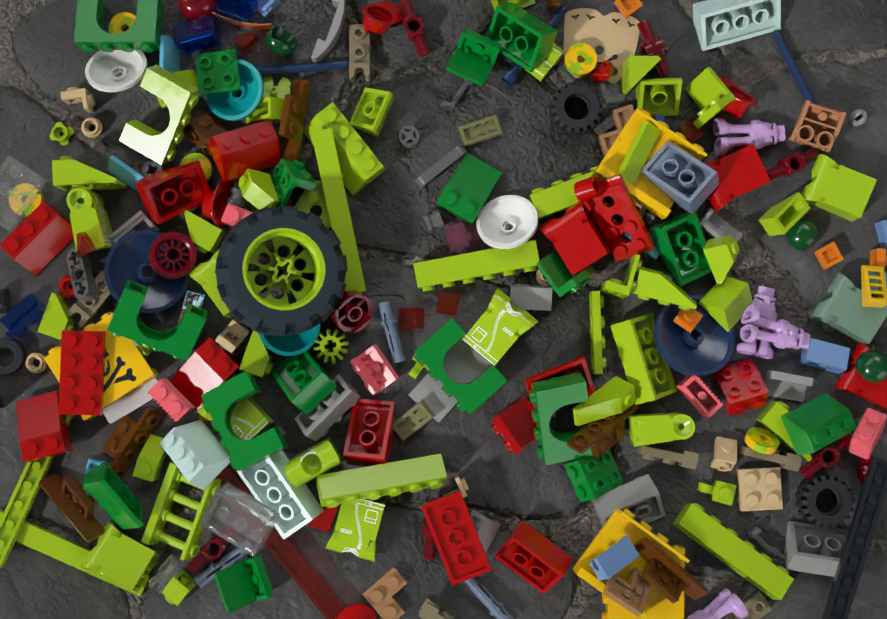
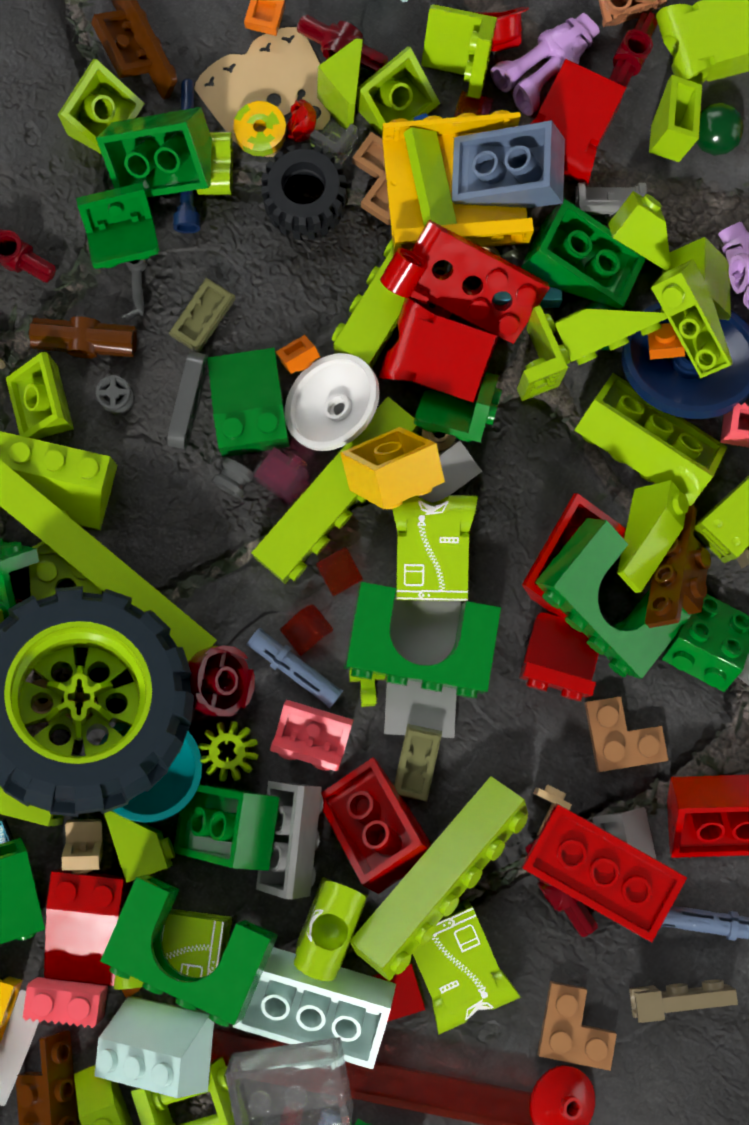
camera: 40 degrees left, 5 degrees down
(416, 97) = (83, 337): none -> reddish brown piece
(508, 277) = (393, 468): none -> yellow brick
(510, 185) = (298, 354): none -> orange plate
(510, 485) = (616, 746): none -> medium nougat plate
(597, 322) = (555, 444): lime plate -> none
(708, 317) = (693, 317): none -> lime slope

